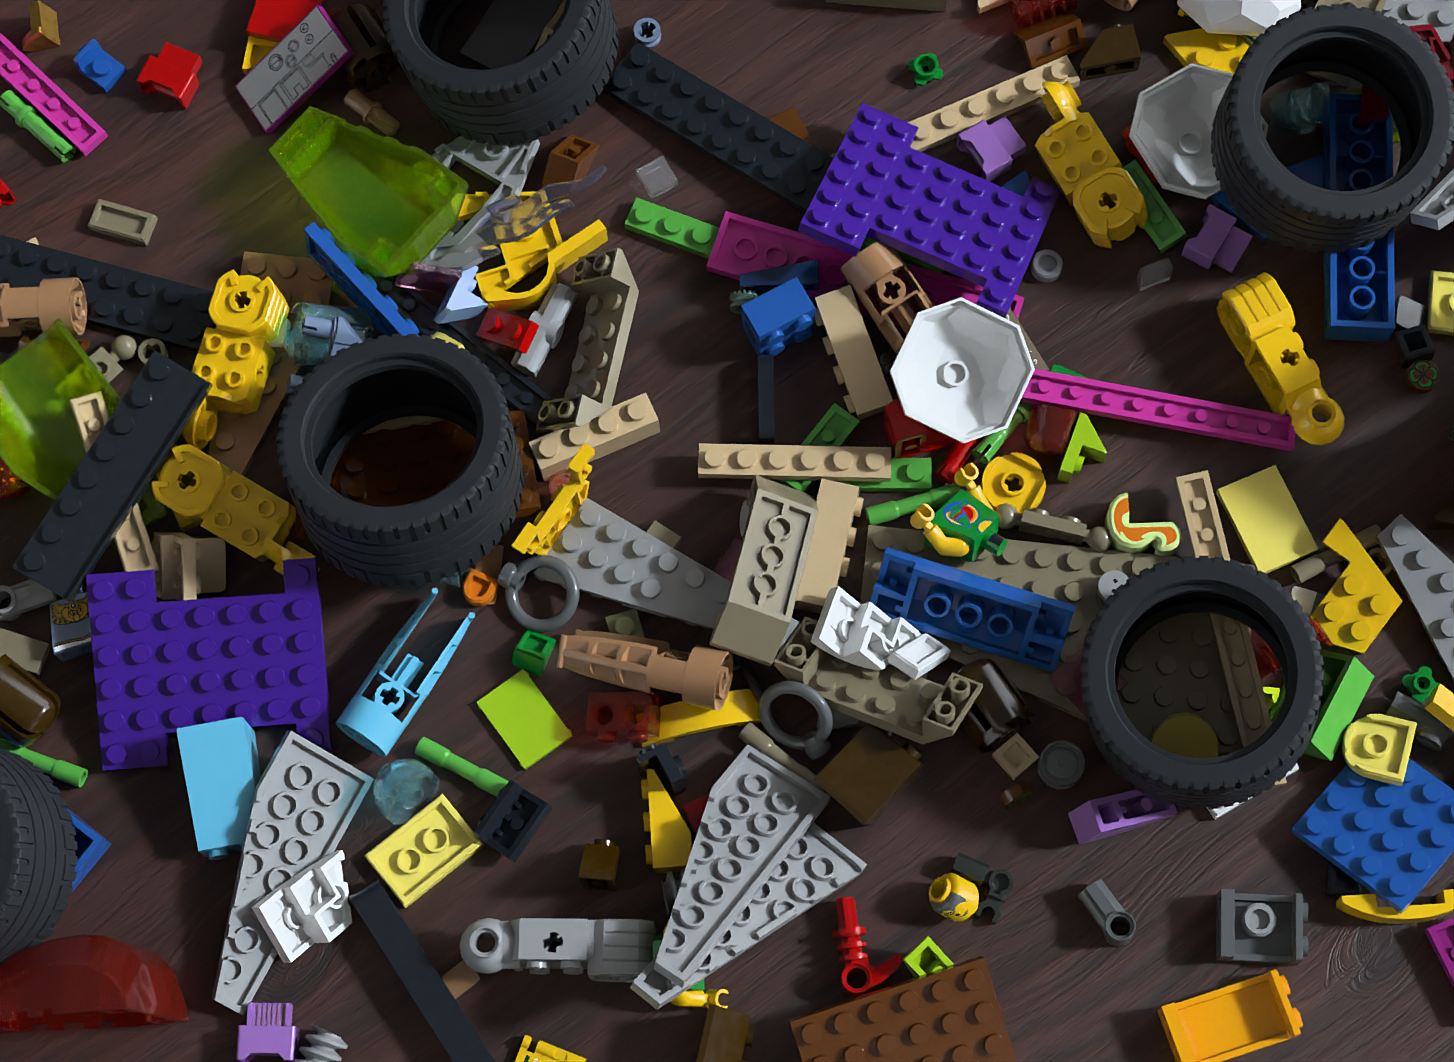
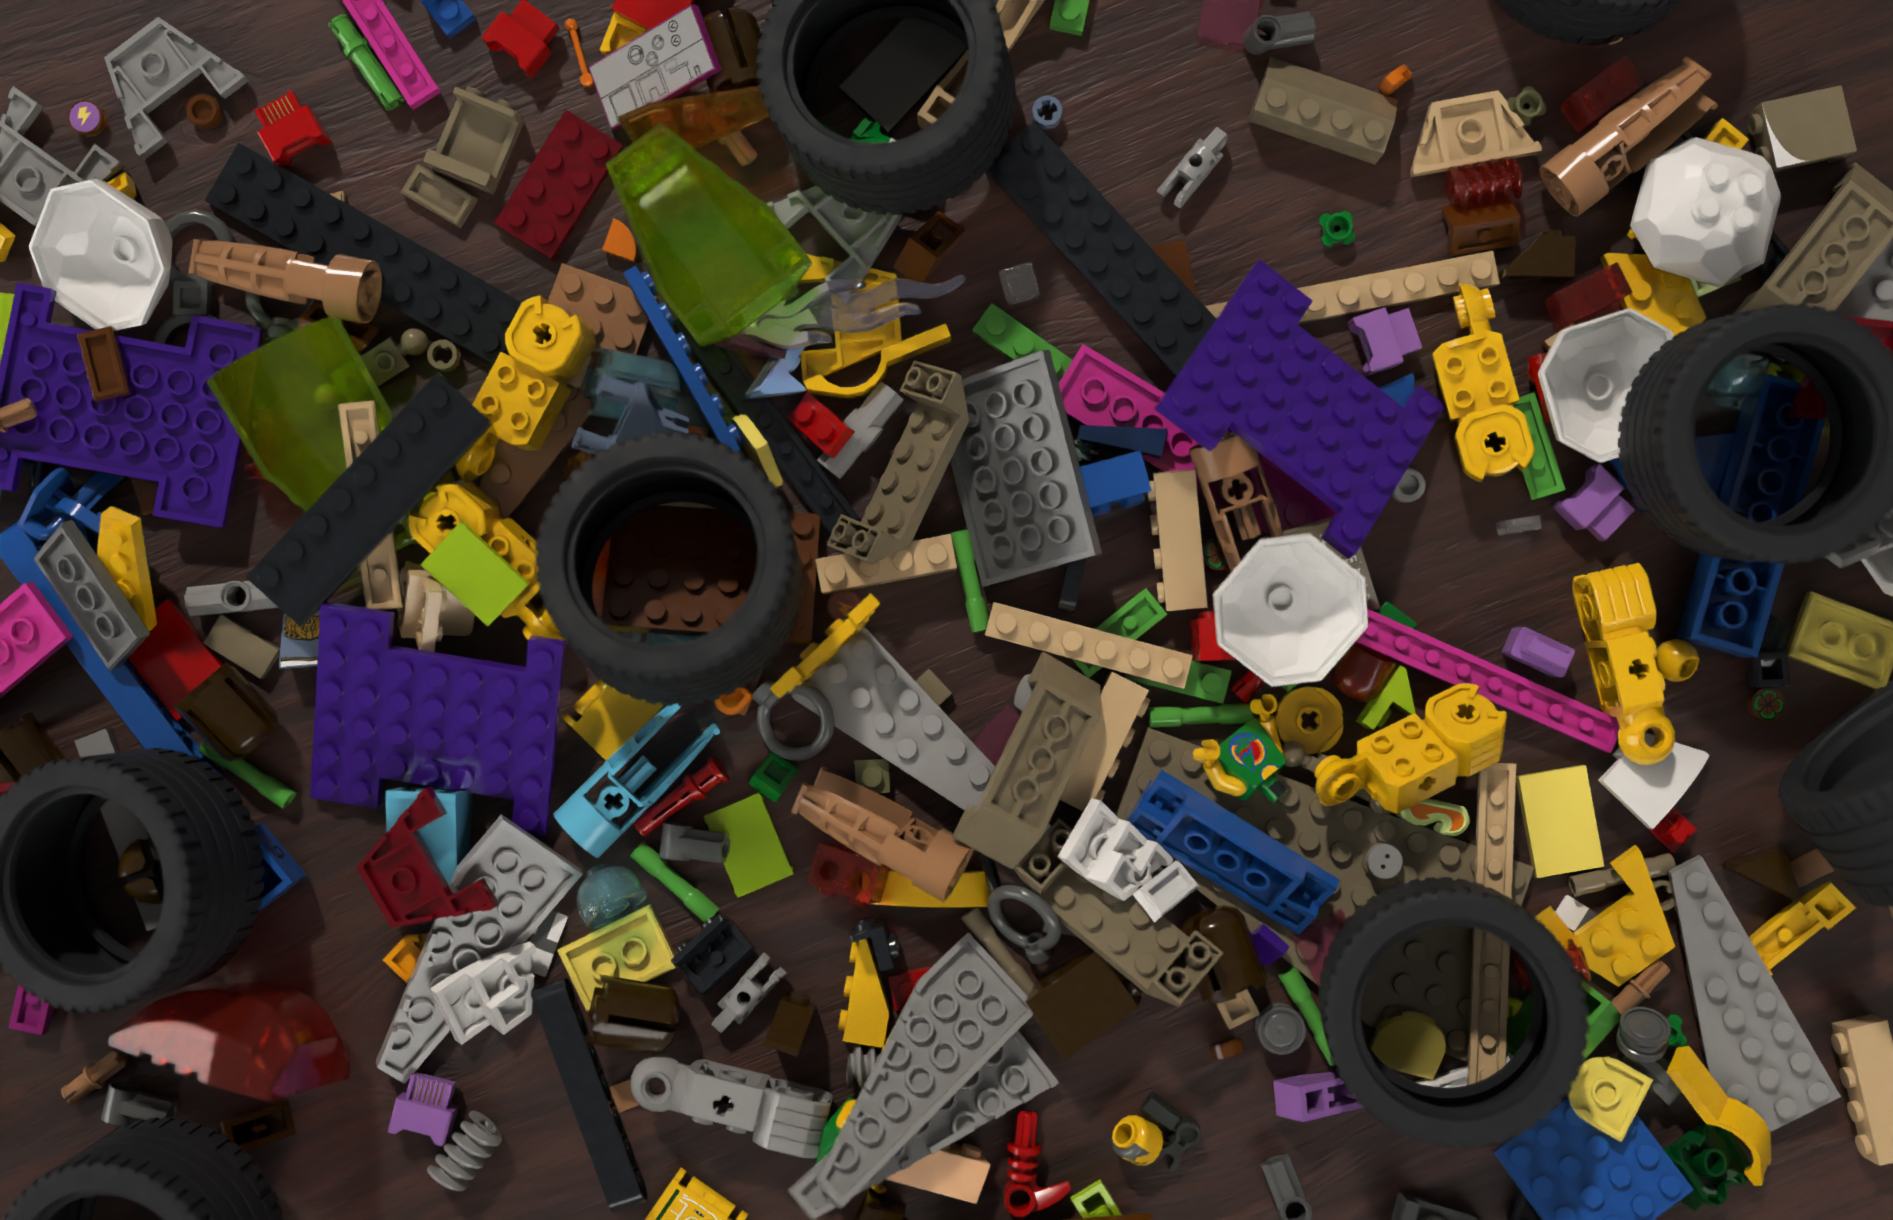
camera: 15 degrees right, 15 degrees up
(147, 167) = (476, 140): none -> dark tan panel
(211, 805) = (407, 878): none -> dark red wing
(220, 895) = (405, 954): none -> light orange tile
(221, 519) = (475, 573): none -> lime piece
(228, 190) = (558, 185): none -> dark red plate
(234, 97) = (586, 78): none -> orange hinge
(292, 222) = (620, 242): none -> orange tile
(345, 94) = (699, 117): none -> clear orange wedge
(352, 845) = (546, 940): none -> sticker
(370, 626) = (609, 717): none -> yellow piece
(423, 717) = (695, 787): none -> red pin
(449, 889) = (633, 1015): none -> dark brown cylinder
(463, 726) = (685, 843): none -> dark grey piece
(548, 869) = (735, 1005): none -> light grey hinge
(683, 453) = (965, 560): none -> bright green piece
(696, 326) = (1021, 473): none -> dark grey plate
(773, 967) = (951, 1171): none -> light nougat wedge
(788, 46) = (1204, 155): none -> light grey hinge
(1030, 689) = (1268, 944): none -> dark purple tile
(1073, 732) = (1302, 998): none -> bright green piece
(1115, 485) = (1416, 755): none -> yellow brick
(1157, 66) = (1588, 296): none -> clear red brick
(1203, 376) = (1538, 651): none -> medium lavender piece
(1329, 353) = (1676, 660): none -> yellow piece
(1338, 464) = (1653, 789): none -> white slope
(1371, 503) = (1673, 830): none -> red brick
(1384, 648) = (1640, 986): none -> medium nougat axle
(1395, 683) = (1643, 1034): none -> dark grey wheel

